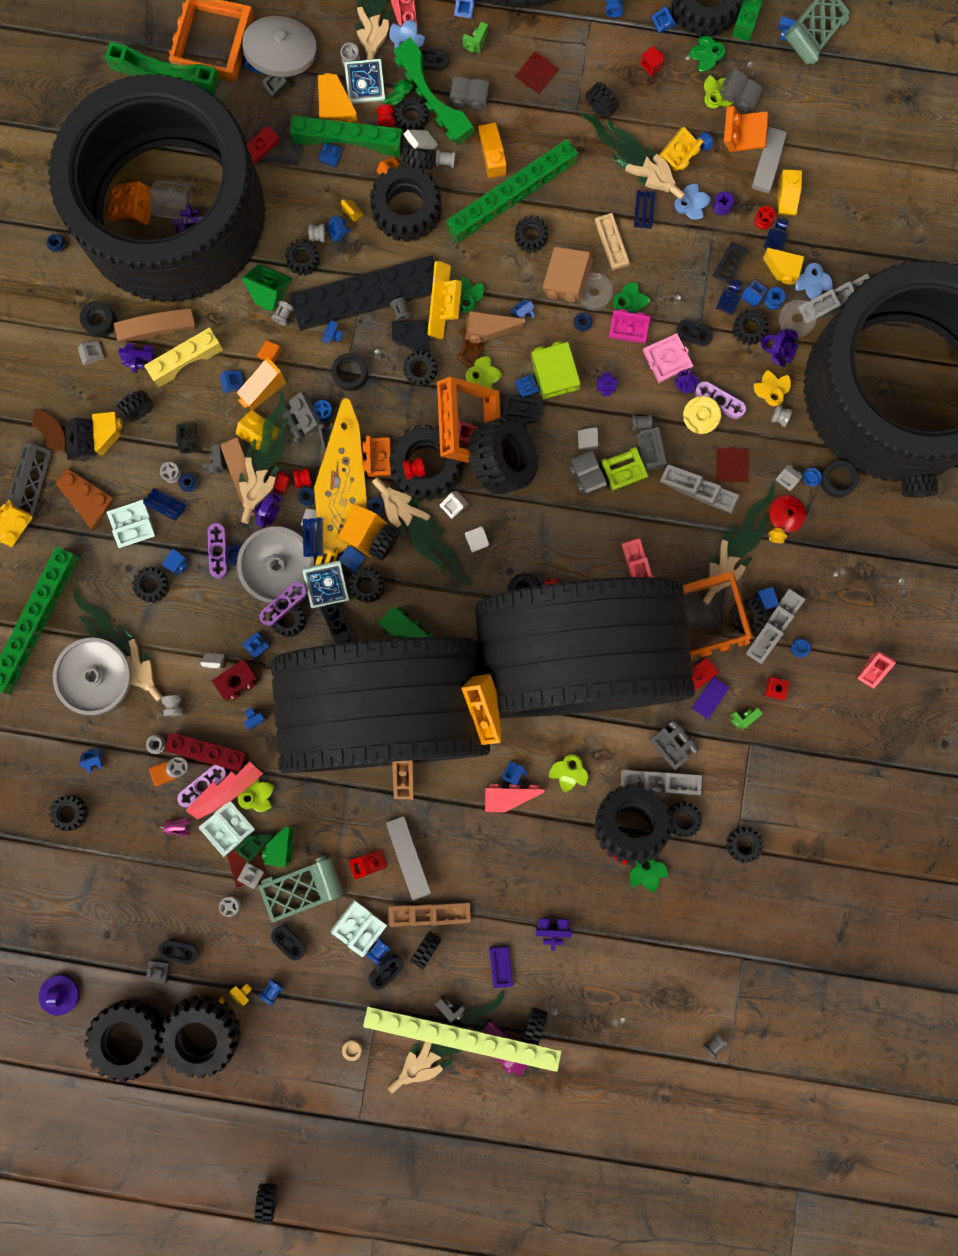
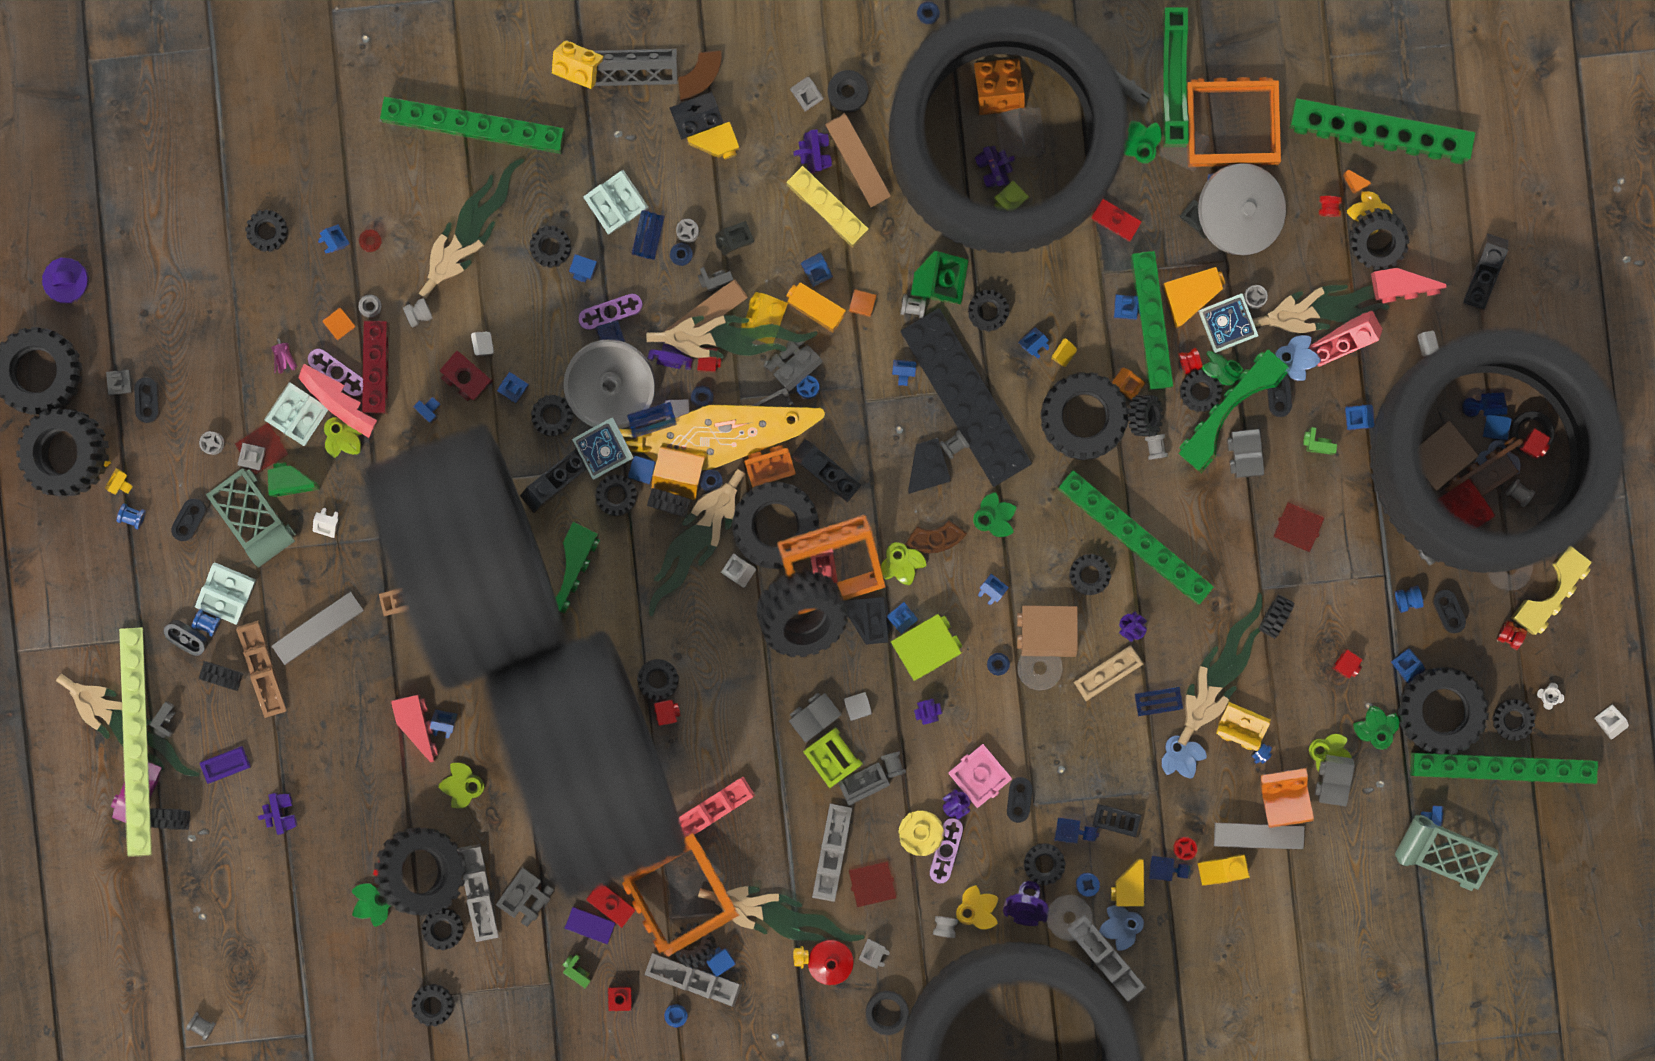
camera: 75 degrees right, 5 degrees up
(85, 497) = (633, 138): dark orange wing -> none
(92, 676) = (426, 212): light grey dish -> none
(96, 730) = (363, 238): none -> clear red plate
(134, 406) = (752, 168): black tyre -> none
(179, 765) = (352, 342): light grey wheel -> none
(253, 845) = (285, 449): dark green tile -> none
(268, 609) = (548, 403): medium lavender beam -> none
(302, 477) = (721, 386): red wheel -> none
(317, 232) = (1022, 319): light grey wheel -> none
(324, 828) = (325, 524): none -> white tile
(345, 358) = (863, 423): black tyre -> none
(352, 1050) = (91, 623): tan tile -> none
(368, 864) = (299, 585): red bracket -> none
(392, 414) = (826, 470): none -> black slope
(413, 468) = (757, 515): red wheel -> none
(420, 139) = (1168, 412): white tile -> none
(431, 368) = (875, 487): black tyre -> none
(444, 300) = (978, 493): yellow bracket -> none
(477, 539) = (703, 608): white slope -> none
(483, 706) = (488, 669): light orange slope -> none
(485, 327) = (956, 549): medium nougat slope -> none
(492, 150) = (1185, 499): light orange slope -> none
(581, 211) = (1132, 626): none -> dark purple gear
(629, 326) = (1004, 720): dark pink bracket -> none
(633, 300) = (1039, 717): green plate -> none
(719, 206) = (1188, 790): dark purple wheel -> none
(754, 293) = (1090, 859): blue slope -> none
(812, 477) = (880, 980): blue plate -> none

